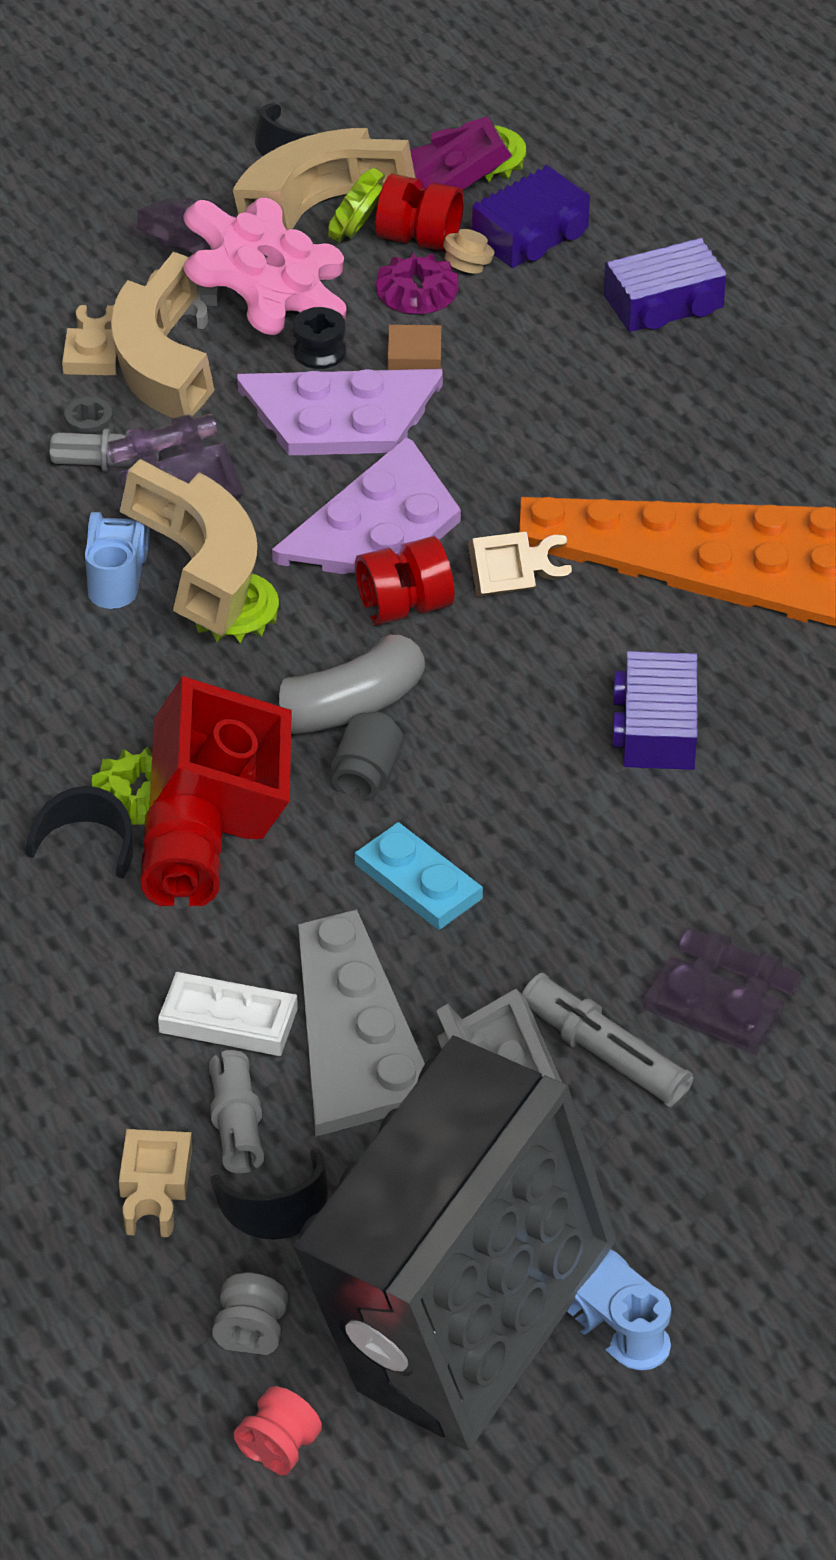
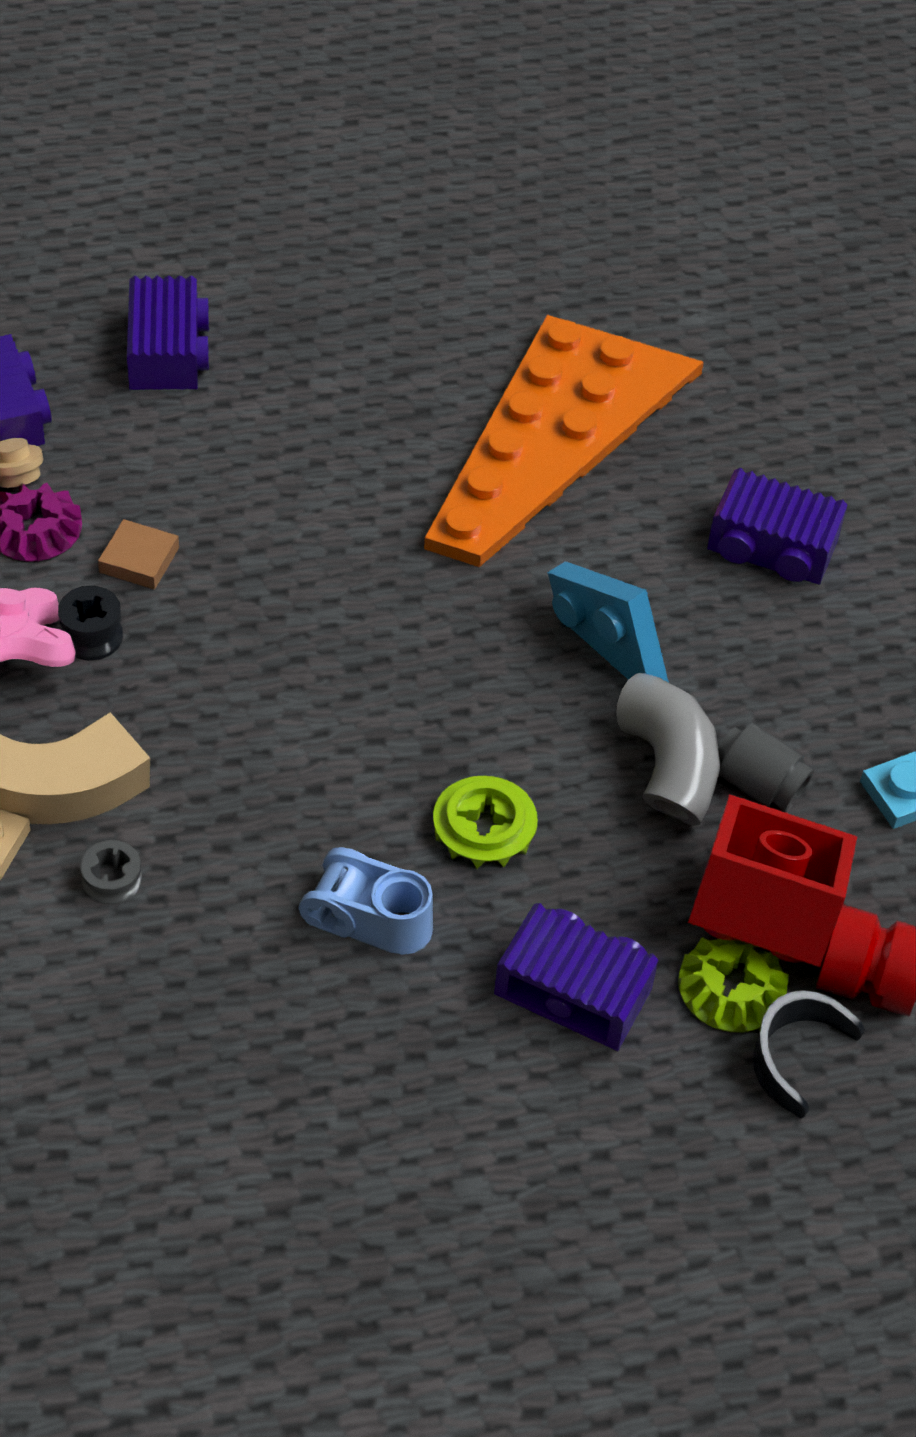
camera: 75 degrees left, 5 degrees up
(85, 449) = (174, 868): light grey axle -> none
(95, 683) = (576, 975): none -> dark purple brick
(187, 435) = (277, 813): clear purple plate -> none
(212, 531) = (441, 786): tan arch -> none
(340, 408) = (205, 643): lavender wing -> none
(381, 509) = (397, 661): lavender wing -> none
(423, 576) = (528, 658): red wheel -> none
(467, 617) = (609, 617): none -> dark azure wing
(509, 564) = (522, 570): plate -> none

